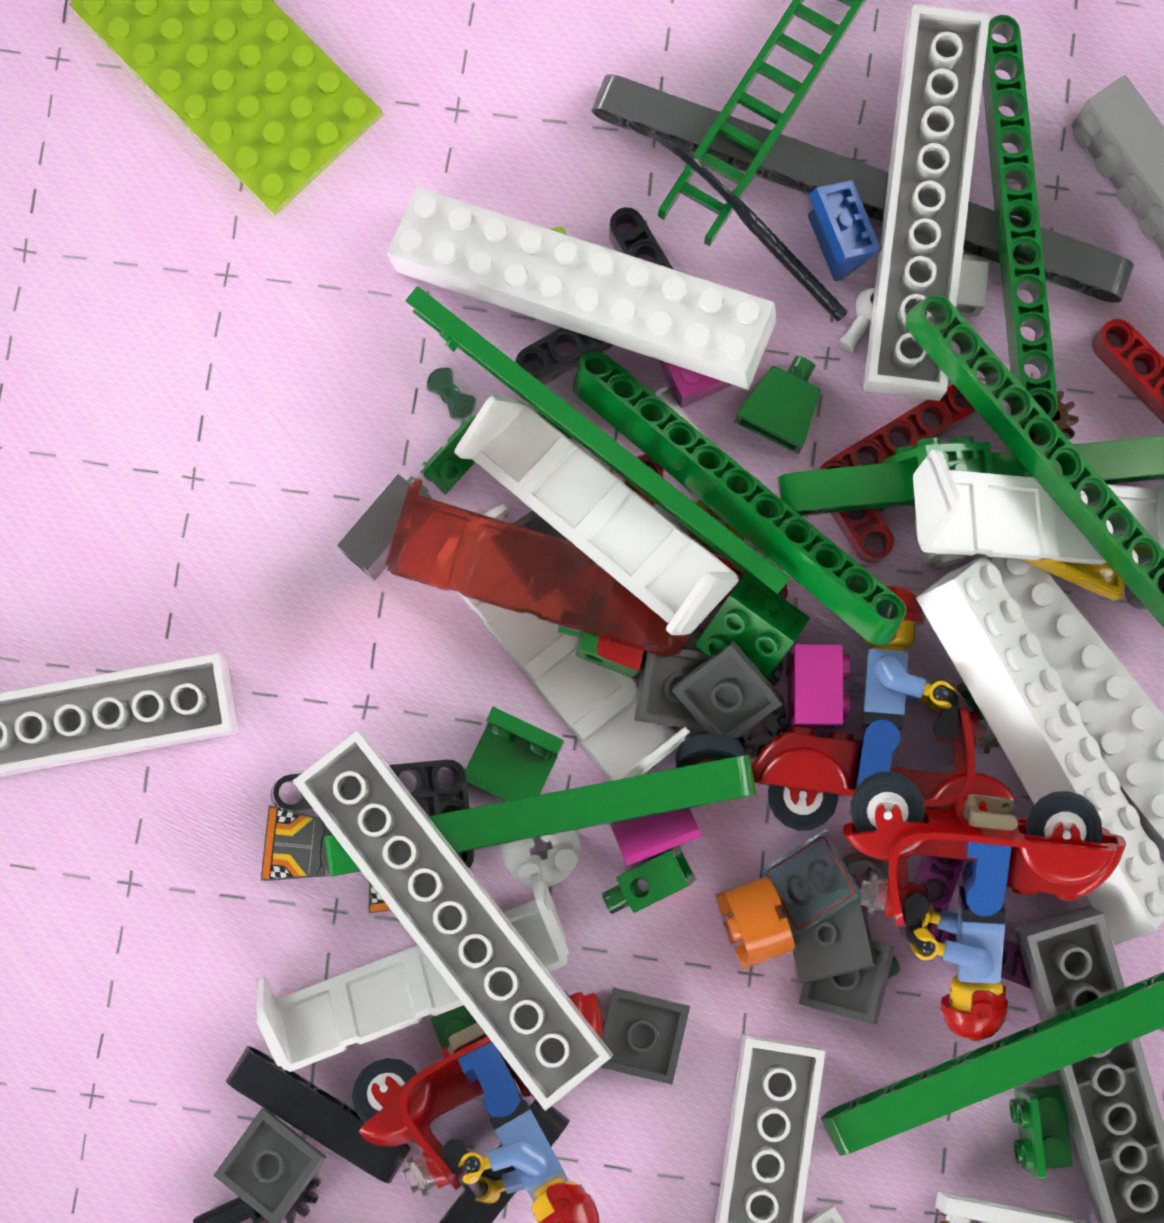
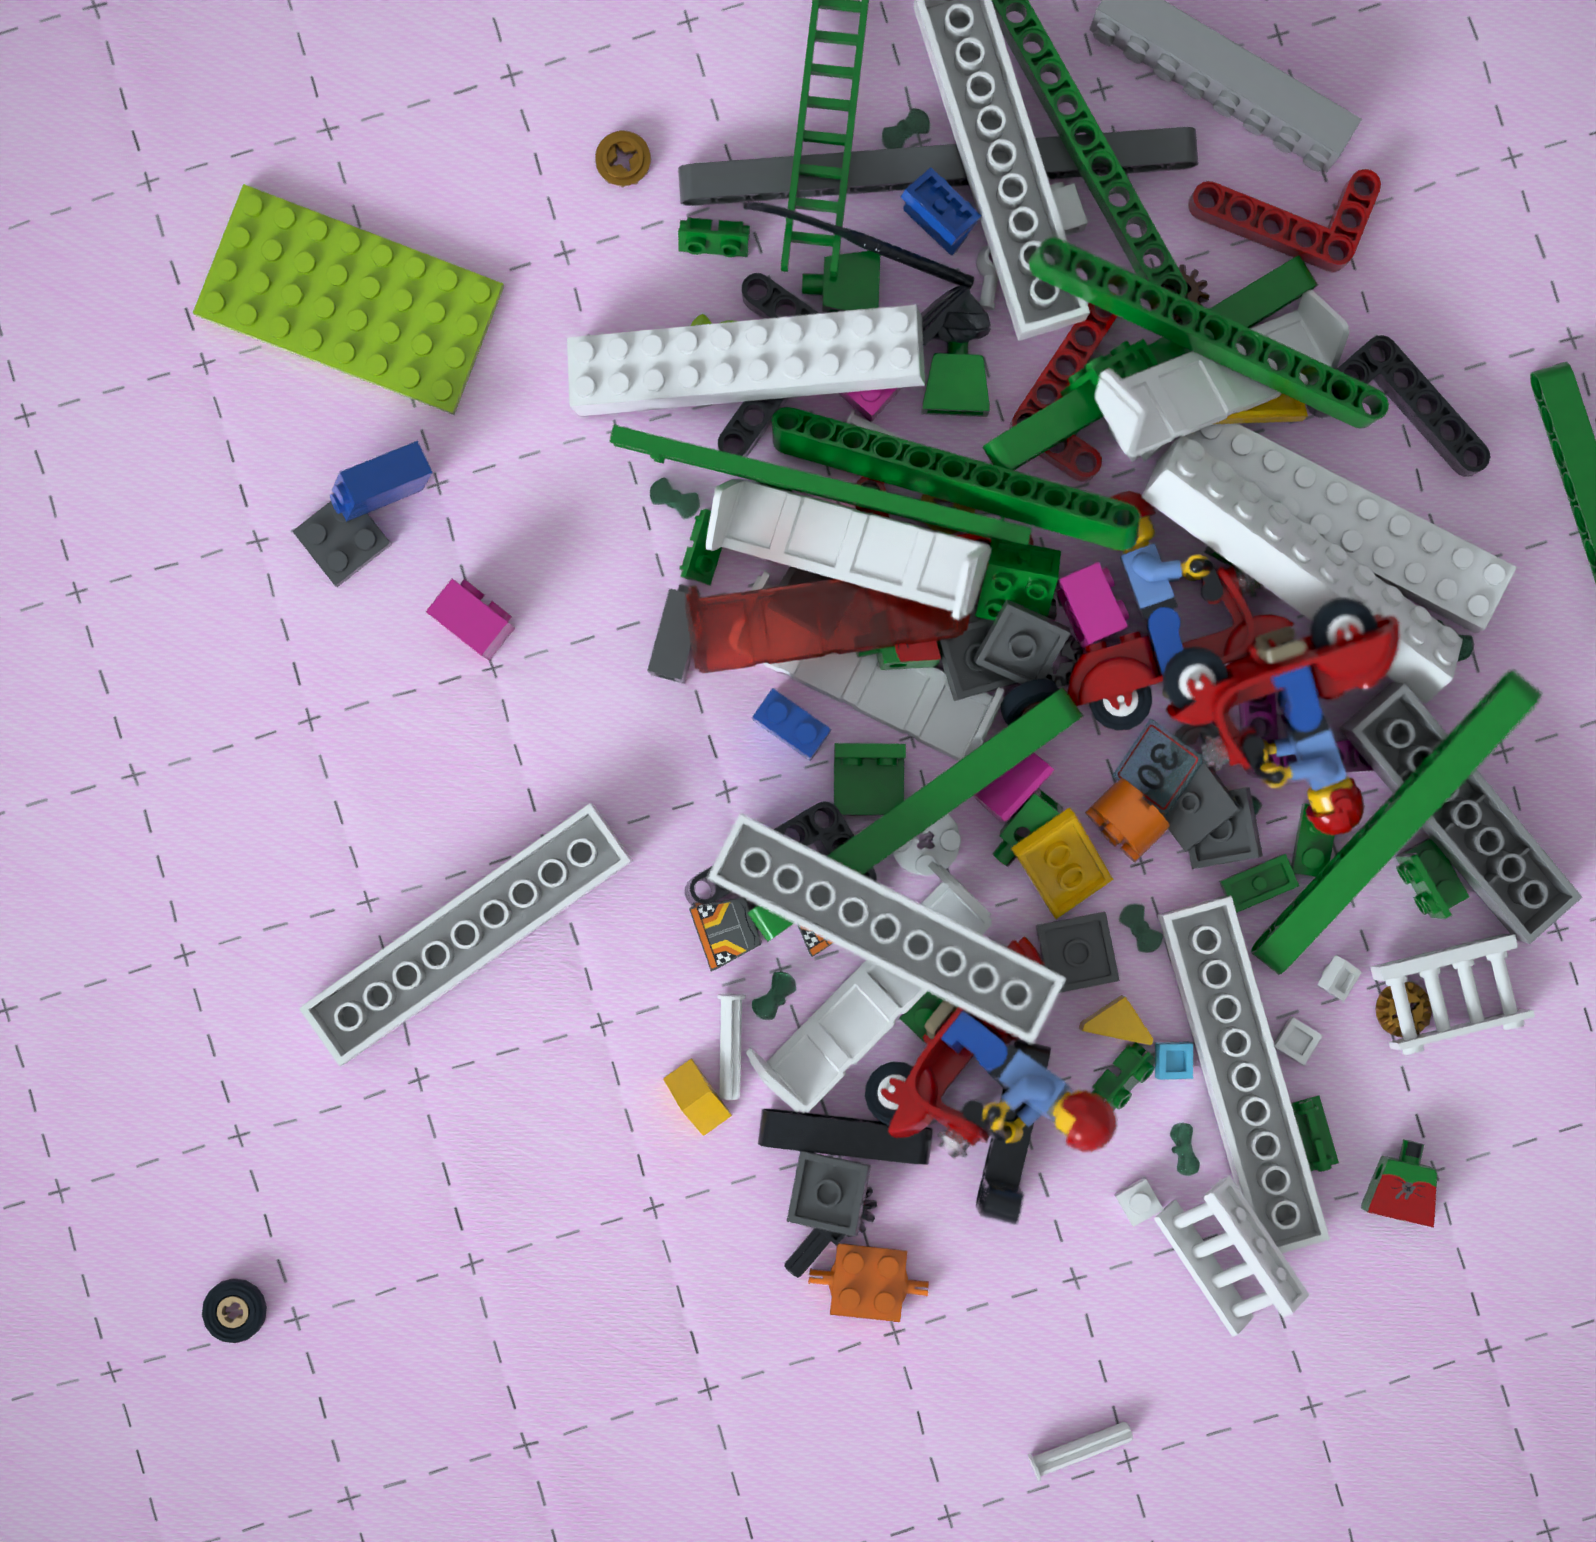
camera: 25 degrees left, 5 degrees up
(107, 284) = (339, 545): none -> dark grey plate
(165, 242) = (380, 481): none -> blue brick
(187, 1003) = (696, 1097): none -> yellow slope
(189, 416) = (469, 619): none -> dark pink brick
(246, 966) = (730, 1045): none -> white axle
(302, 942) = (782, 986): none -> clear green piece
(457, 667) = (791, 724): none -> blue brick
(541, 35) = (629, 144): none -> pearl gold gear
(594, 152) = (698, 238): none -> green hinge
(645, 1184) = (1134, 1069): none -> green hinge
(651, 1126) = (1117, 1021): none -> yellow slope
(667, 935) = (1062, 863): none -> yellow tile
(690, 1194) = (1173, 1060): none -> medium azure plate
(716, 1025) = (1133, 918): none -> clear green piece
(725, 262) = (854, 286): none -> green torso
(809, 339) = (955, 318): none -> black hair
(857, 138) = (915, 123): none -> clear green piece
(862, 1050) = (1260, 882): none -> green plate
(900, 1188) = (1339, 978): none -> white plate
(931, 1039) = (1311, 847): none -> green plate

